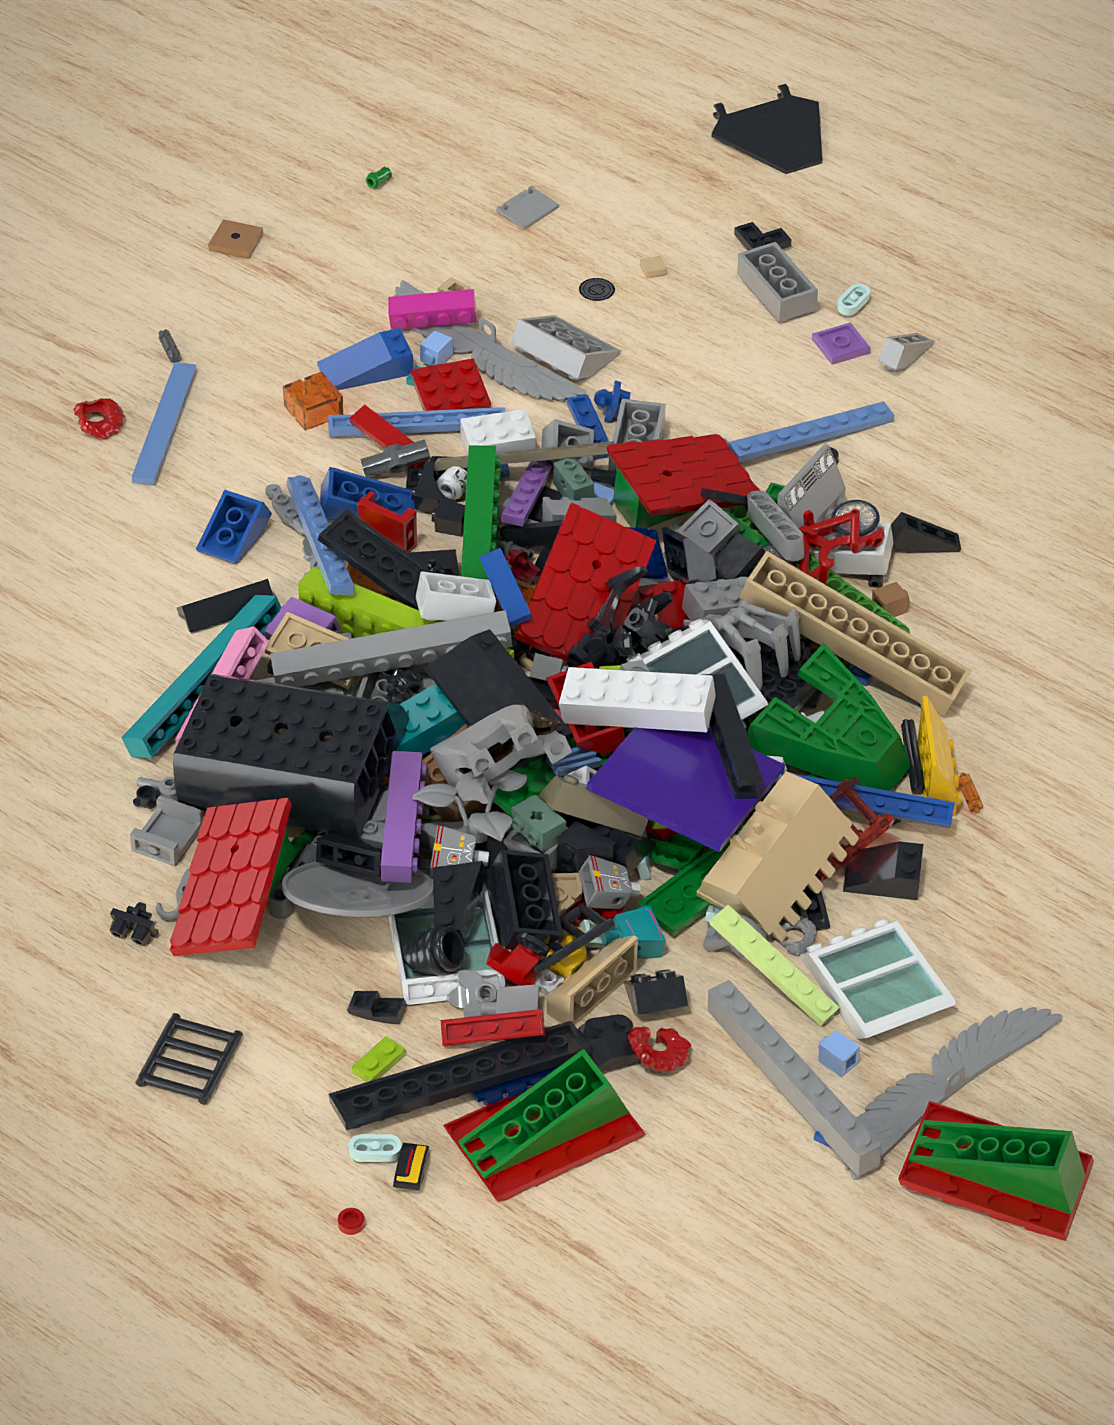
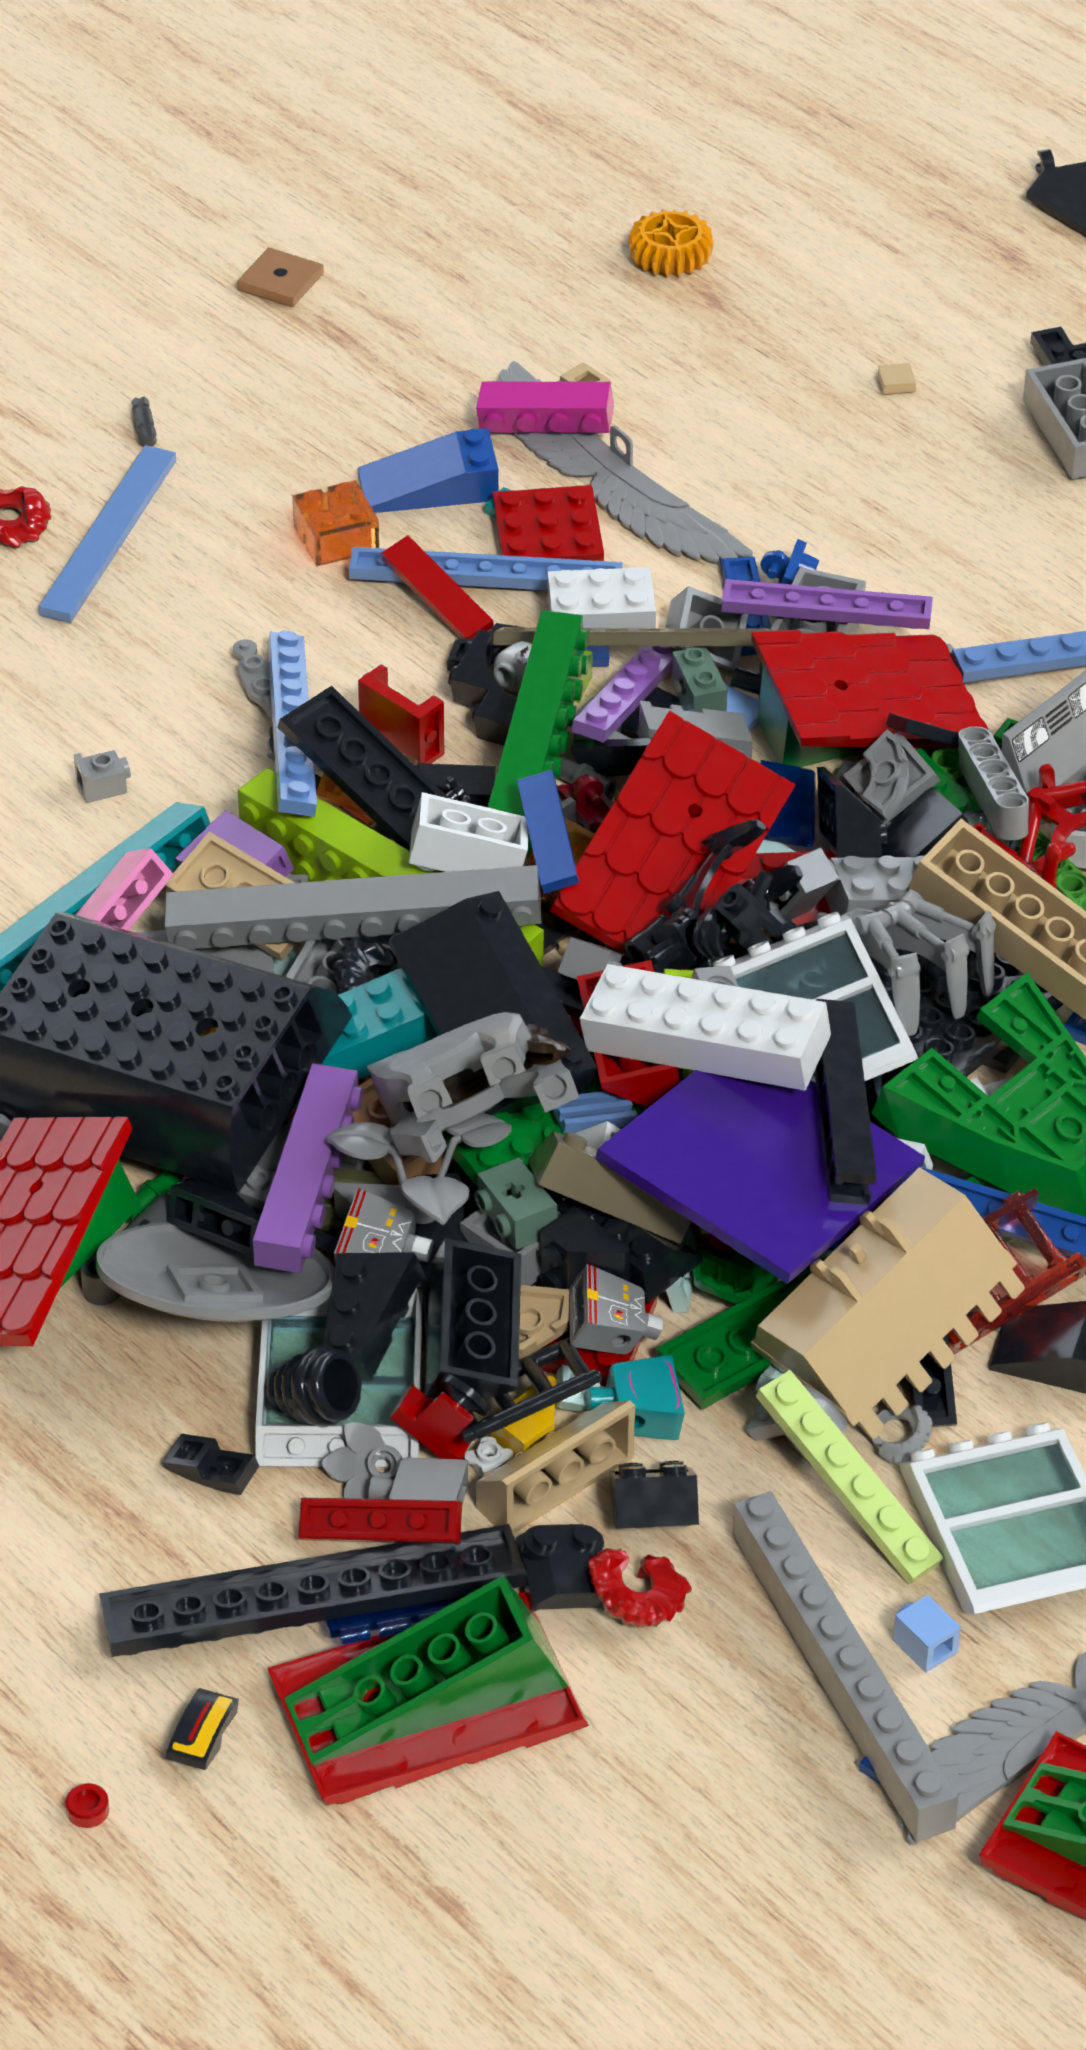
camera: 10 degrees right, 0 degrees up
(200, 583) = (101, 775): none -> light grey brick
(221, 606) = (122, 814): black panel -> none
(234, 527) = (171, 697): blue slope -> none
(344, 489) = (348, 655): blue slope -> none
(374, 1147) = (153, 1690): light aqua plate -> none
(375, 179) = (506, 211): green pin -> none
(379, 1060) = (193, 1549): lime plate -> none
(395, 459) = (437, 621): dark grey piece -> none
(436, 349) = (539, 465): light blue brick -> none
(487, 189) = (670, 242): none -> light orange gear
(527, 207) = (727, 274): light grey piece -> none
(563, 346) = (732, 480): light grey slope -> none
(596, 289) = (804, 403): sticker -> none
(645, 421) = (827, 604): none -> medium lavender plate
(681, 598) = (817, 880): none -> light grey brick
(708, 527) = (888, 775): none -> light grey tile

